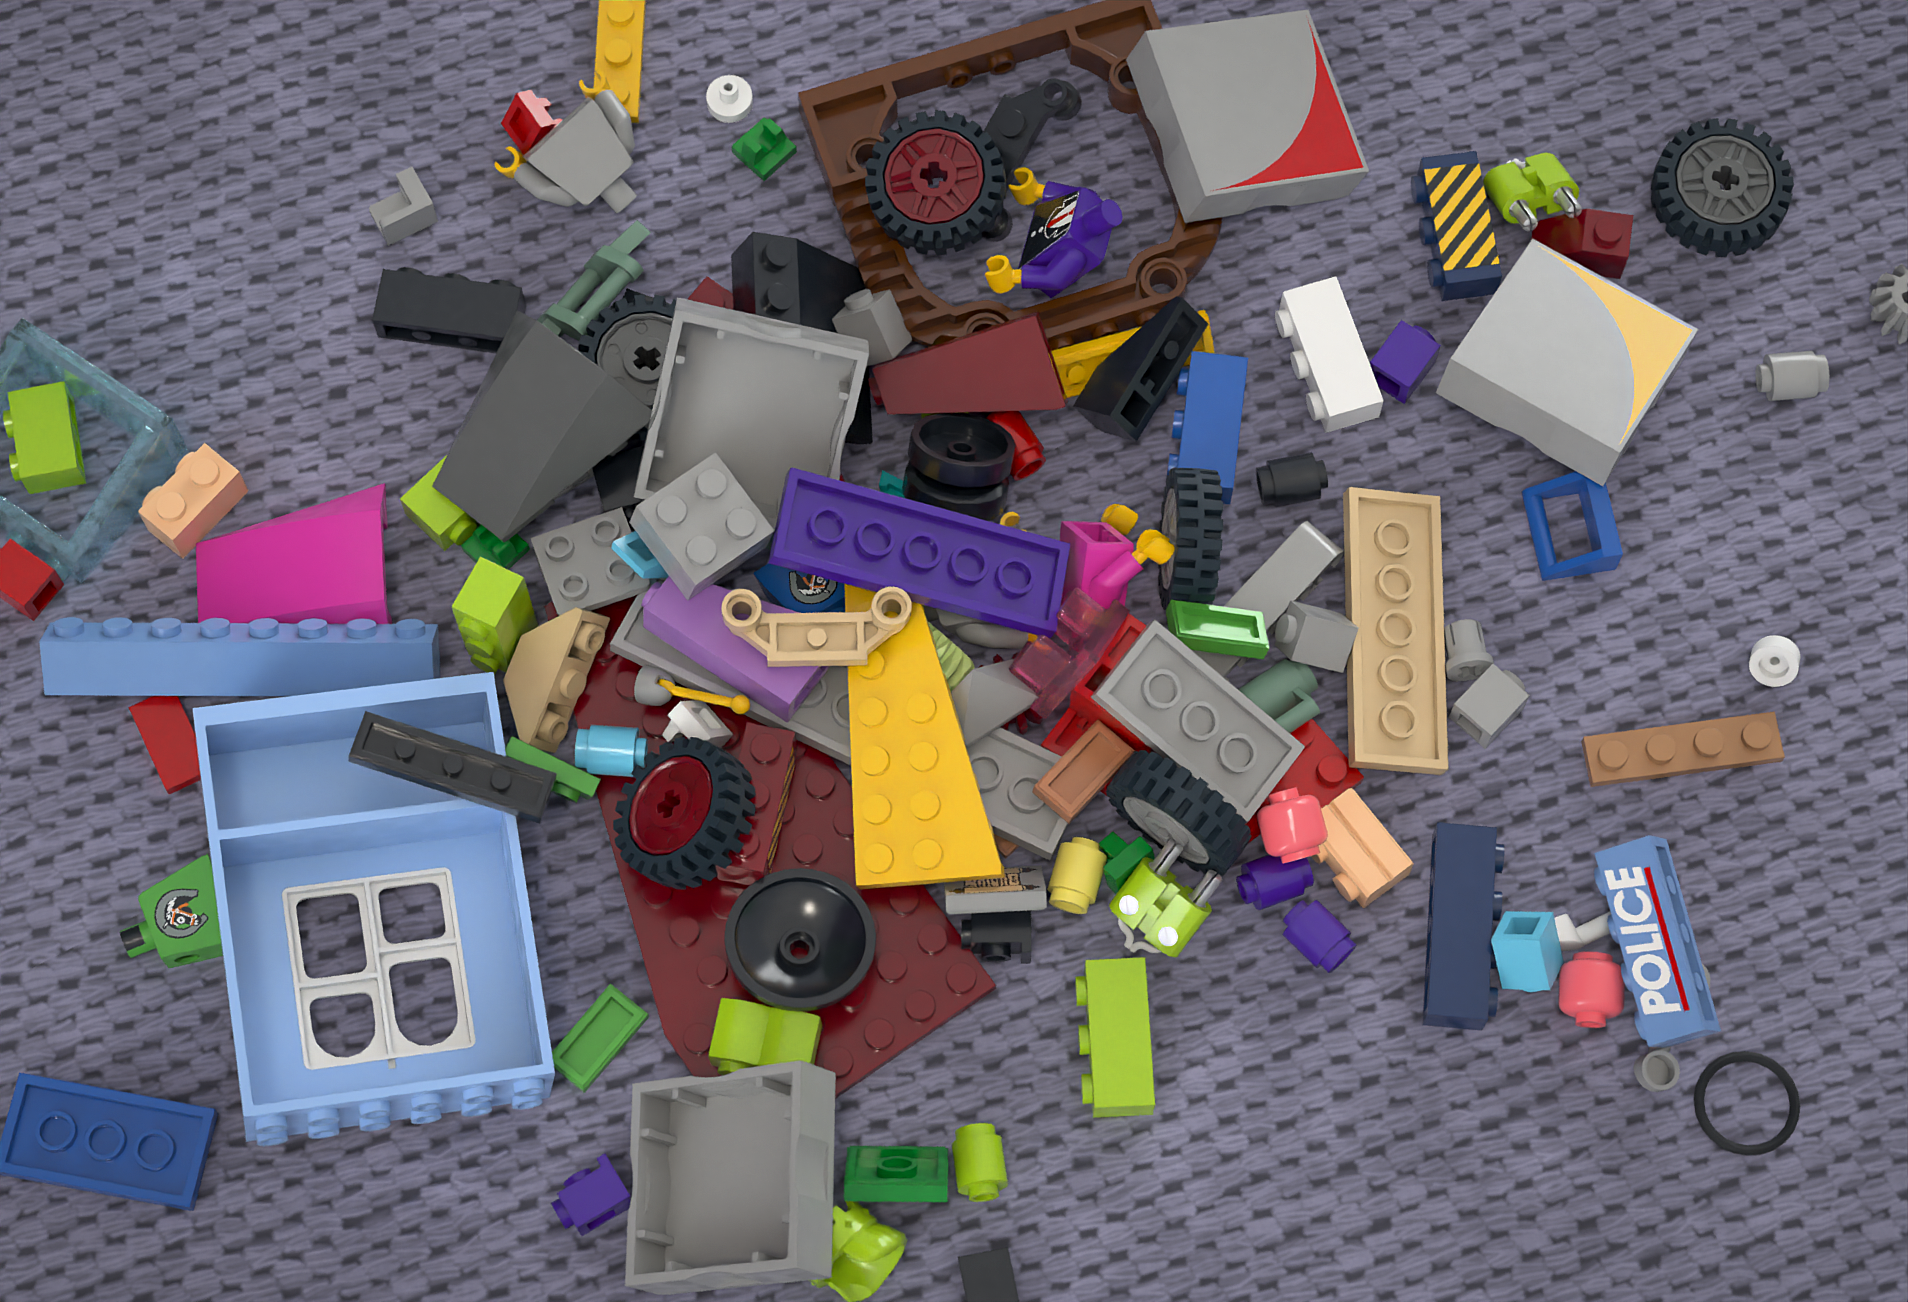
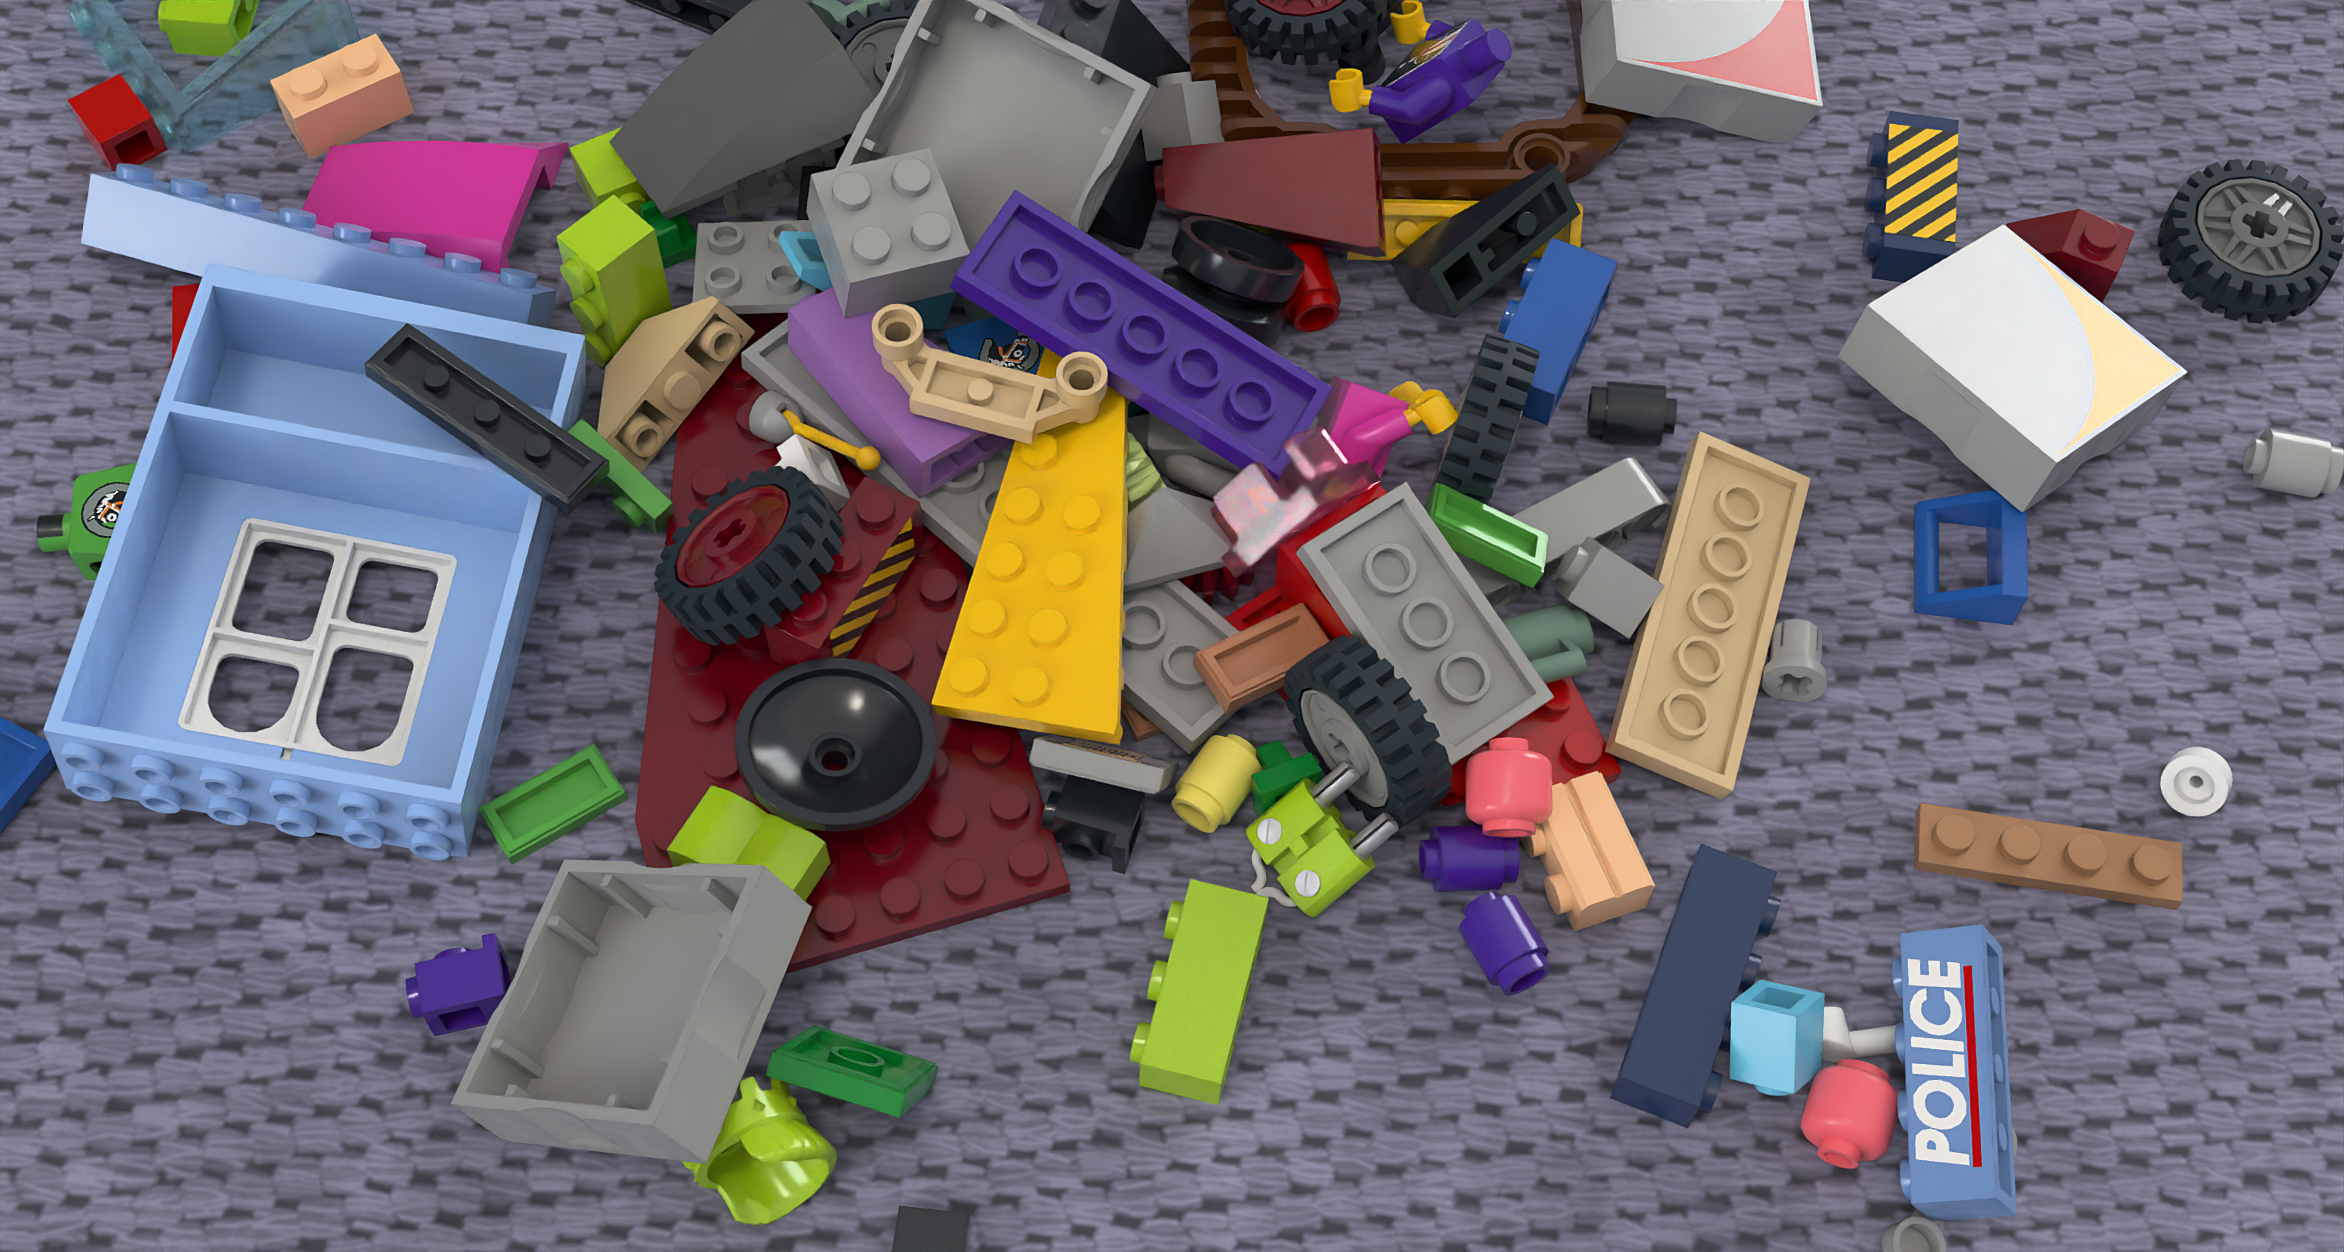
camera: 15 degrees right, 10 degrees down
(610, 750) = (692, 469): medium azure brick -> none
(979, 1162) = (970, 1093): lime brick -> none
(1329, 355) = (1717, 292): white brick -> none
(1404, 360) = (1806, 321): dark purple brick -> none
(1489, 705) = (1807, 730): light grey brick -> none
(1536, 183) = (2023, 178): lime piece -> none

